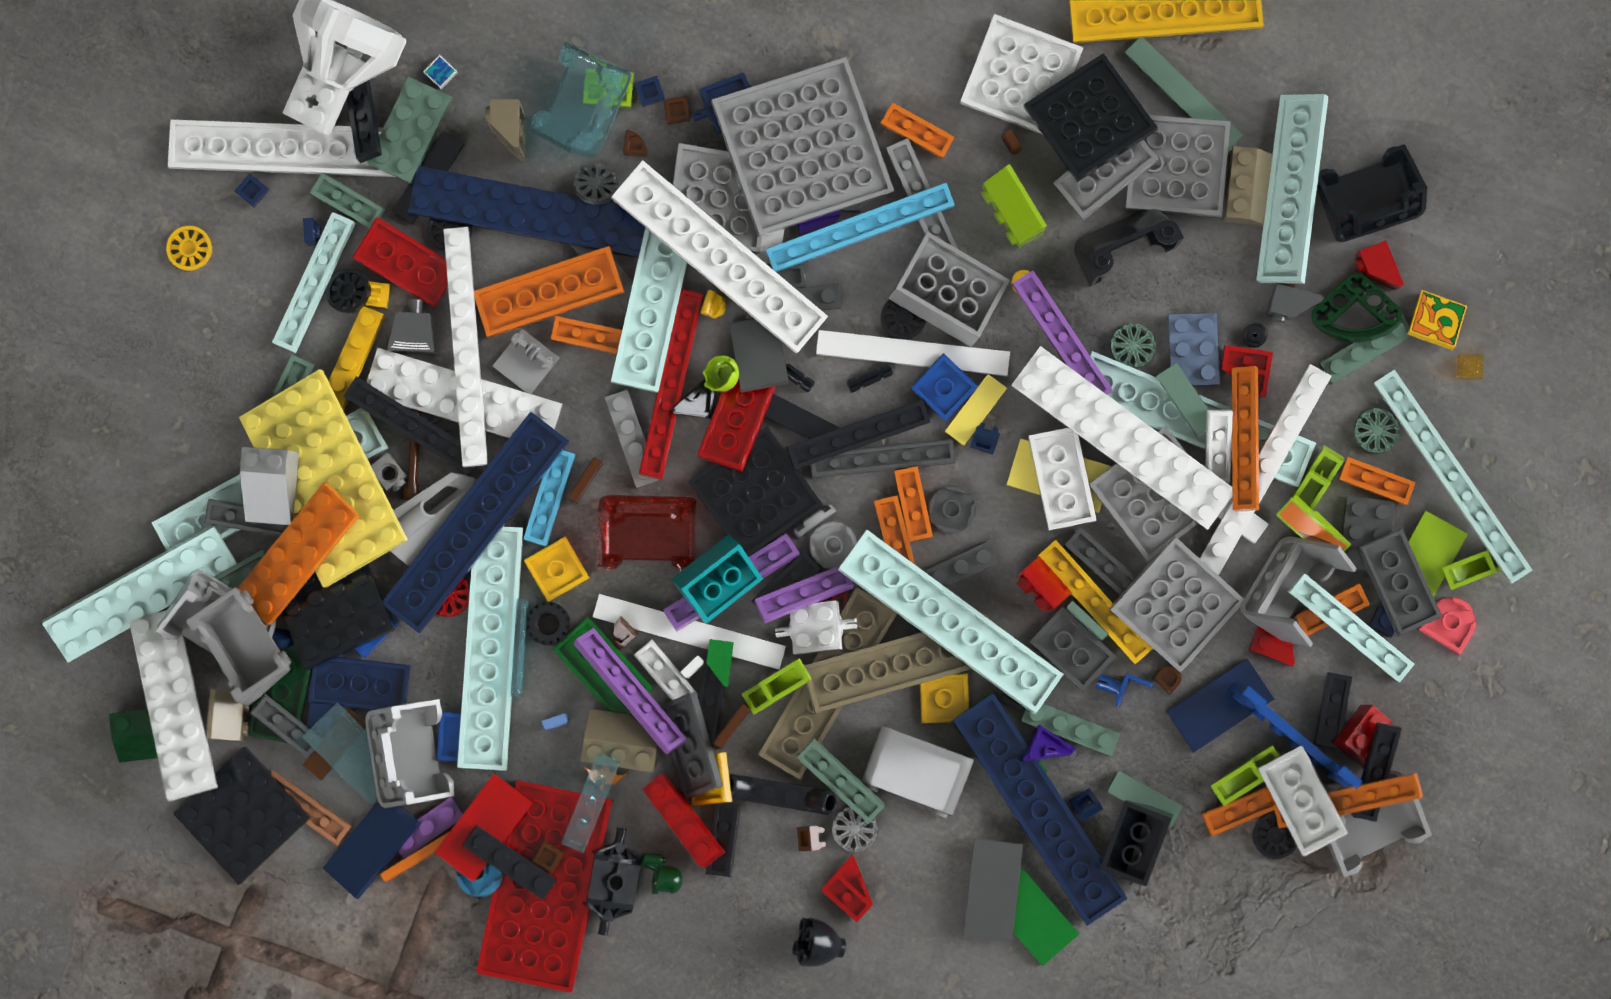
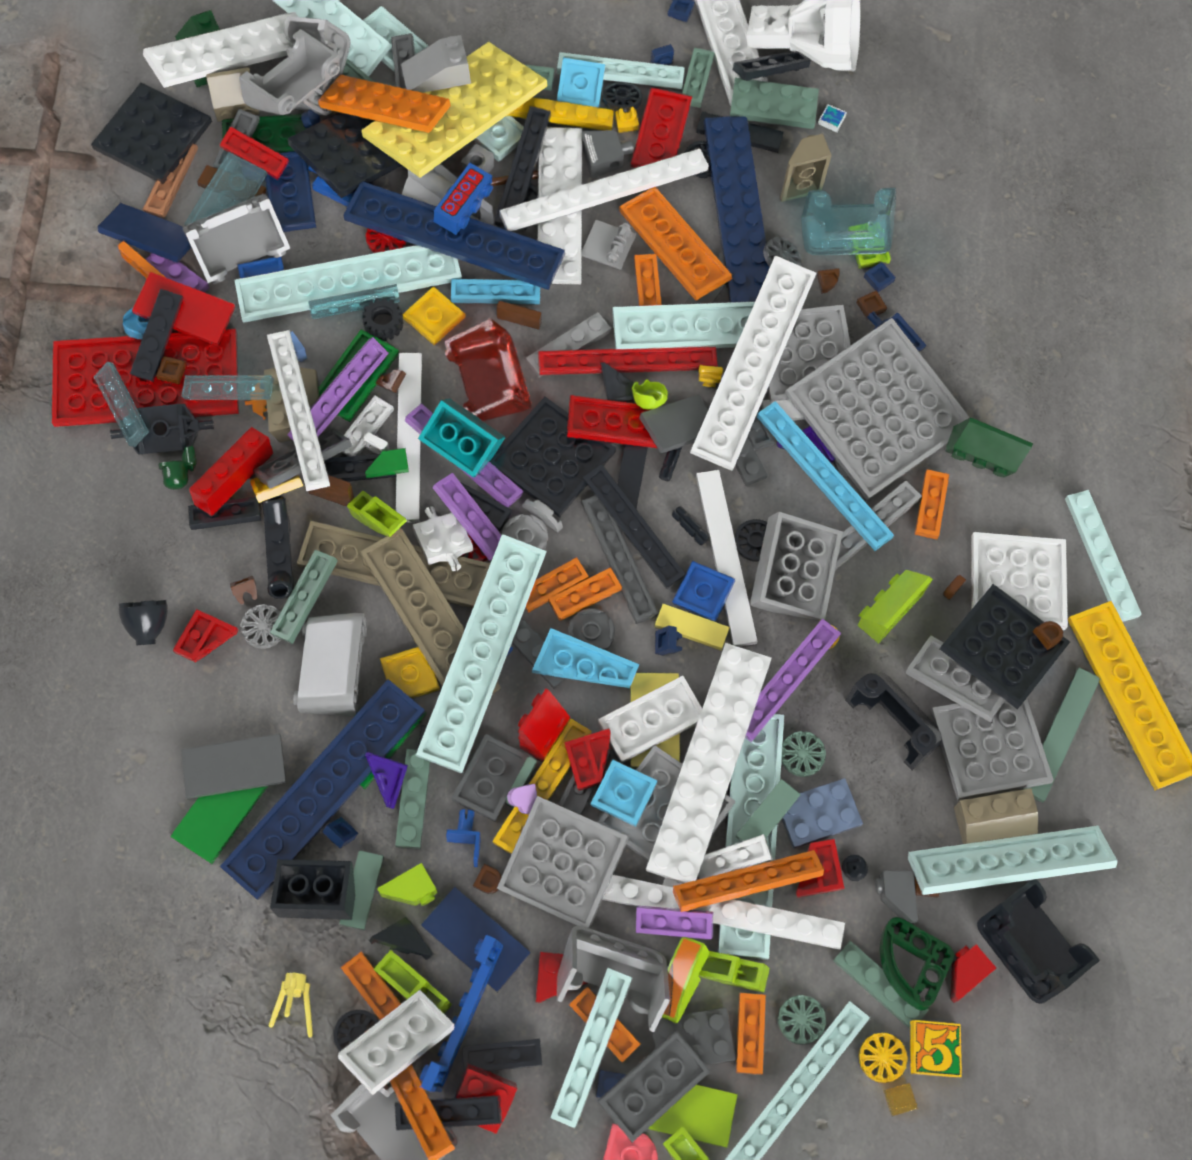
camera: 70 degrees right, 15 degrees down
(311, 709) = (254, 152): none -> red plate
(321, 331) = (581, 82): none -> medium azure plate
(443, 500) = (463, 199): none -> blue brick
(578, 916) = (121, 404): none -> clear light blue tile
(645, 736) = (298, 411): none -> white tile
(881, 57) = (987, 447): none -> dark green slope
(982, 532) = (578, 660): none -> medium azure wing
(1085, 551) = (589, 758): none -> red wing
(1092, 71) = (1049, 633): none -> reddish brown tile
(1106, 623) = (523, 797): none -> lavender tile
(1130, 527) = (624, 793): none -> medium azure plate
(1157, 752) = (410, 887): none -> lime slope
(1202, 772) = (402, 938): none -> black tile
(1217, 883) = (293, 987): none -> light yellow plant
(1262, 521) = (674, 922): none -> medium lavender plate
(1430, 369) = (883, 1057): none -> yellow wheel

